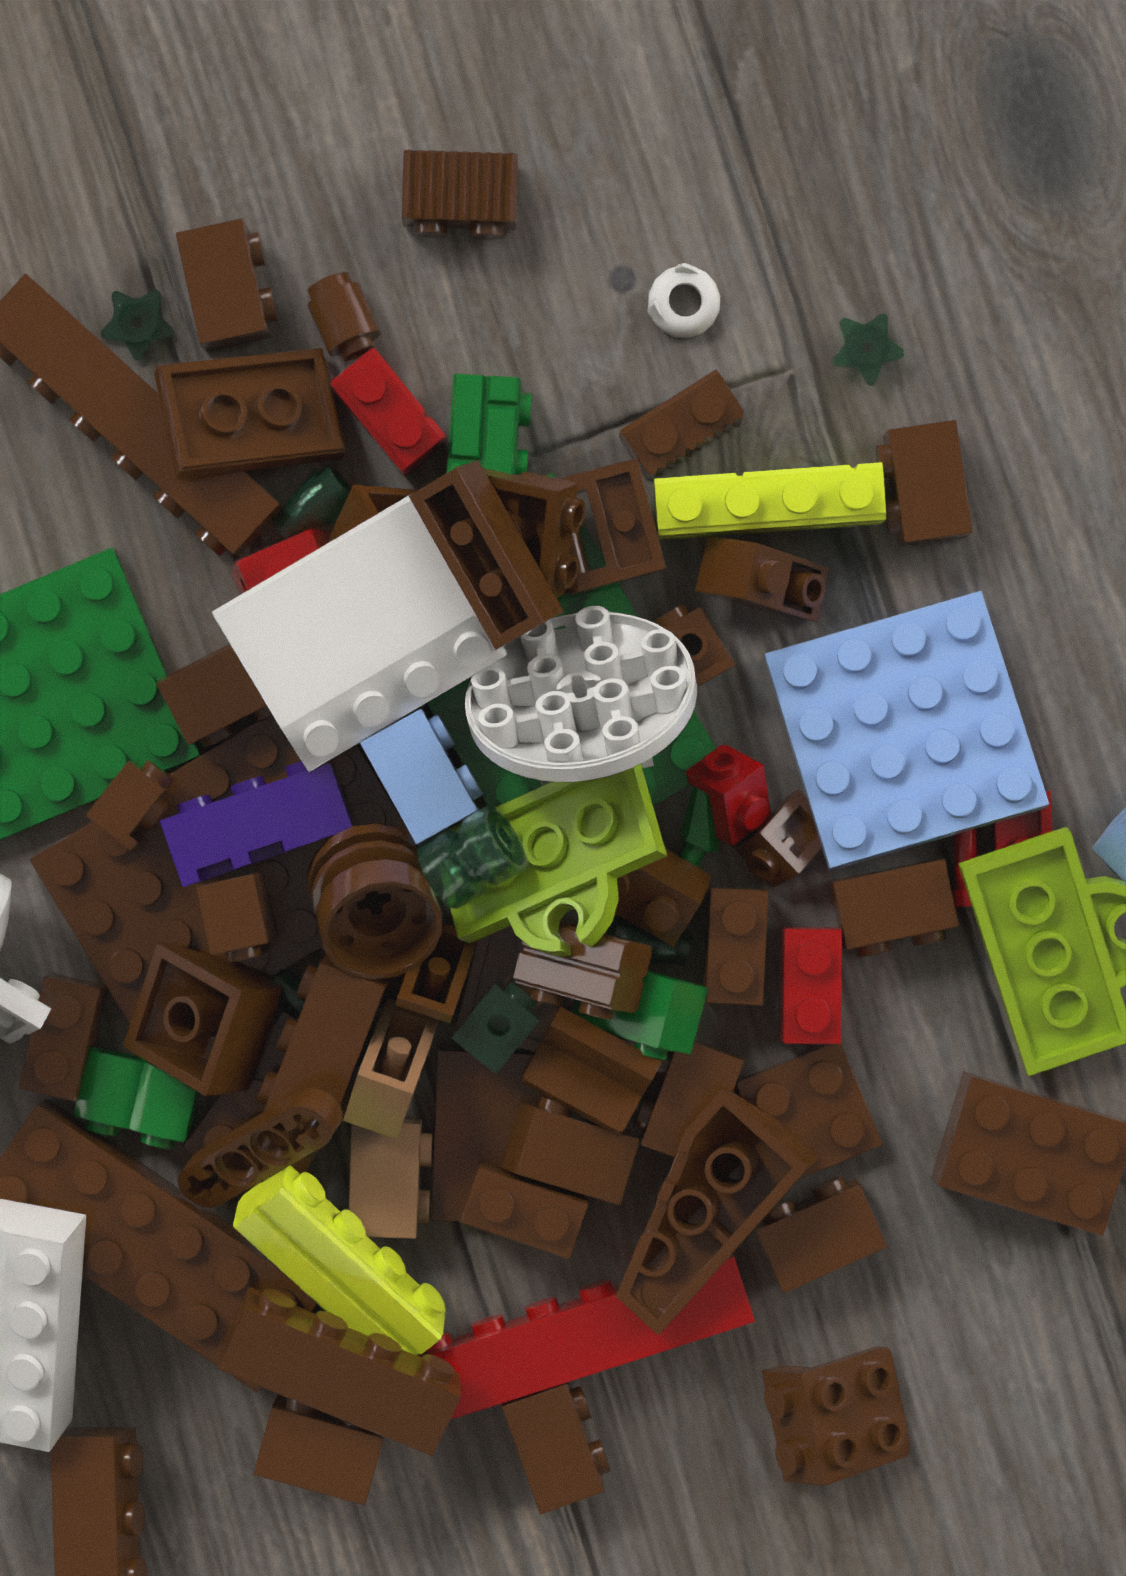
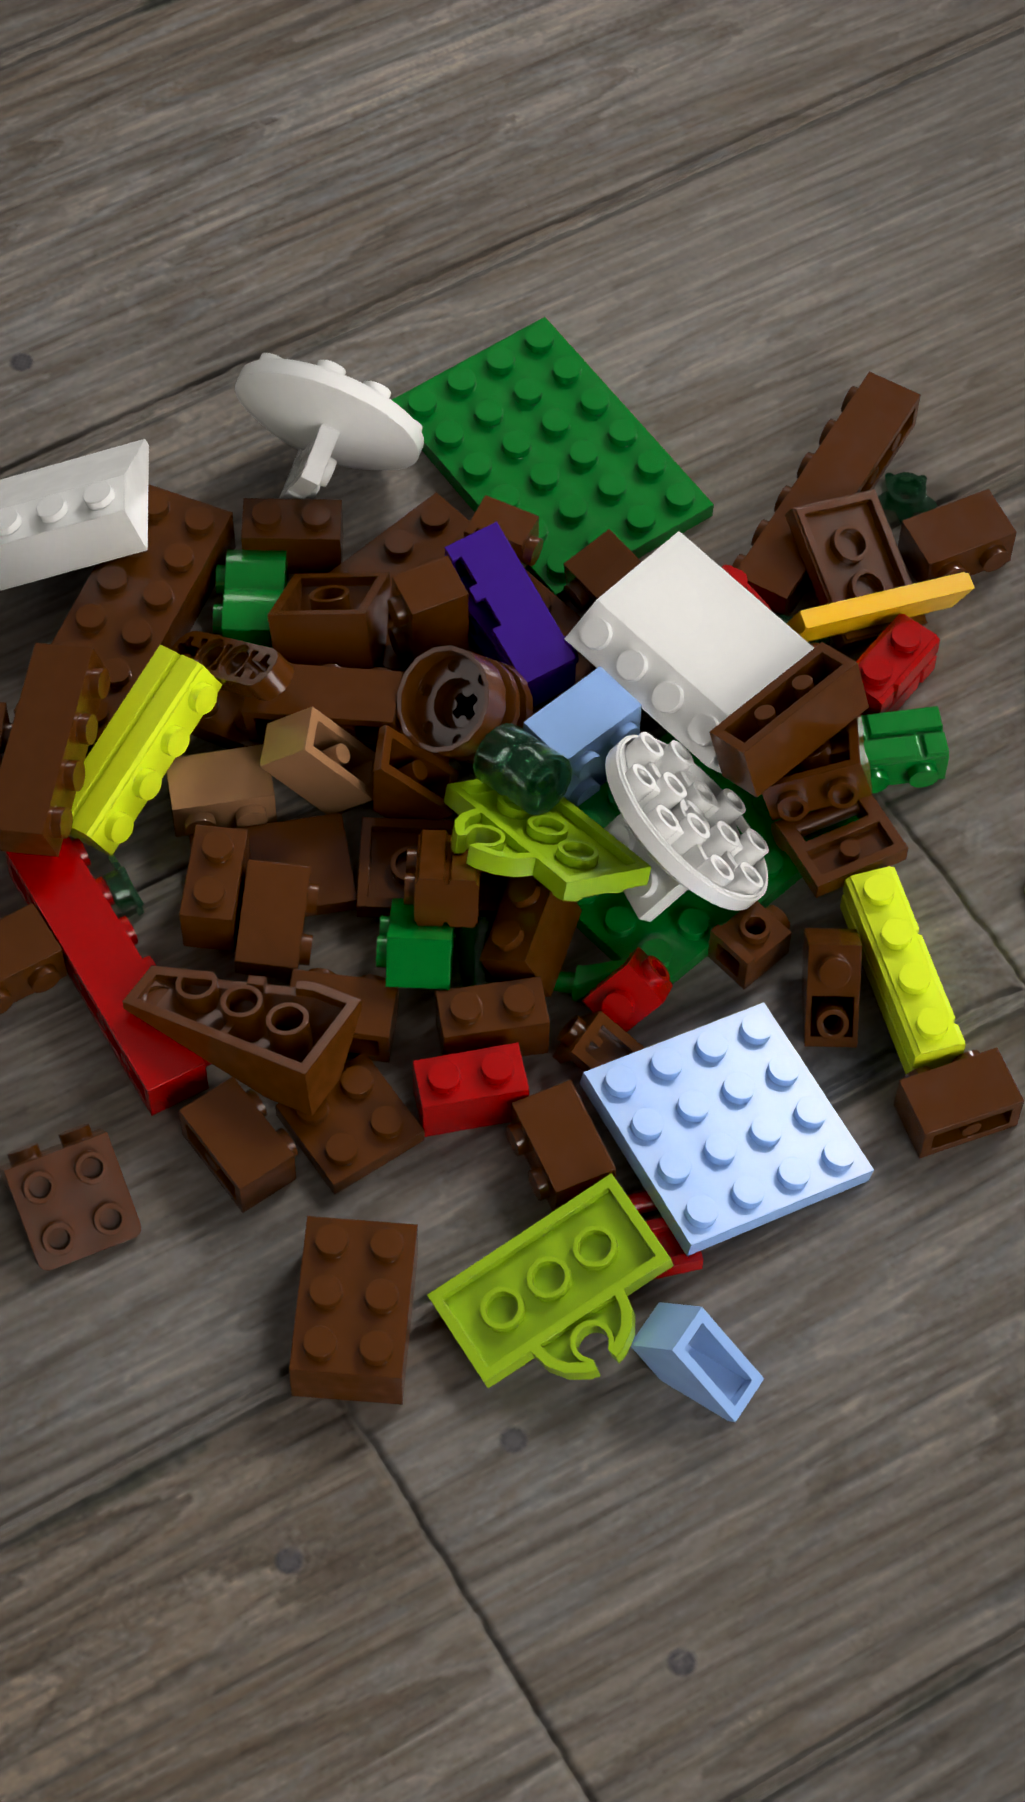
camera: 80 degrees right, 30 degrees down
(323, 408) = (881, 607): none -> yellow tile
(342, 316) = (962, 628): reddish brown brick -> none
(489, 1304) = (122, 889): none -> clear green plate
(498, 1025) = (375, 834): clear green brick -> none
(590, 1071) = (350, 913): reddish brown panel -> none
(682, 425) = (949, 894): reddish brown brick -> none

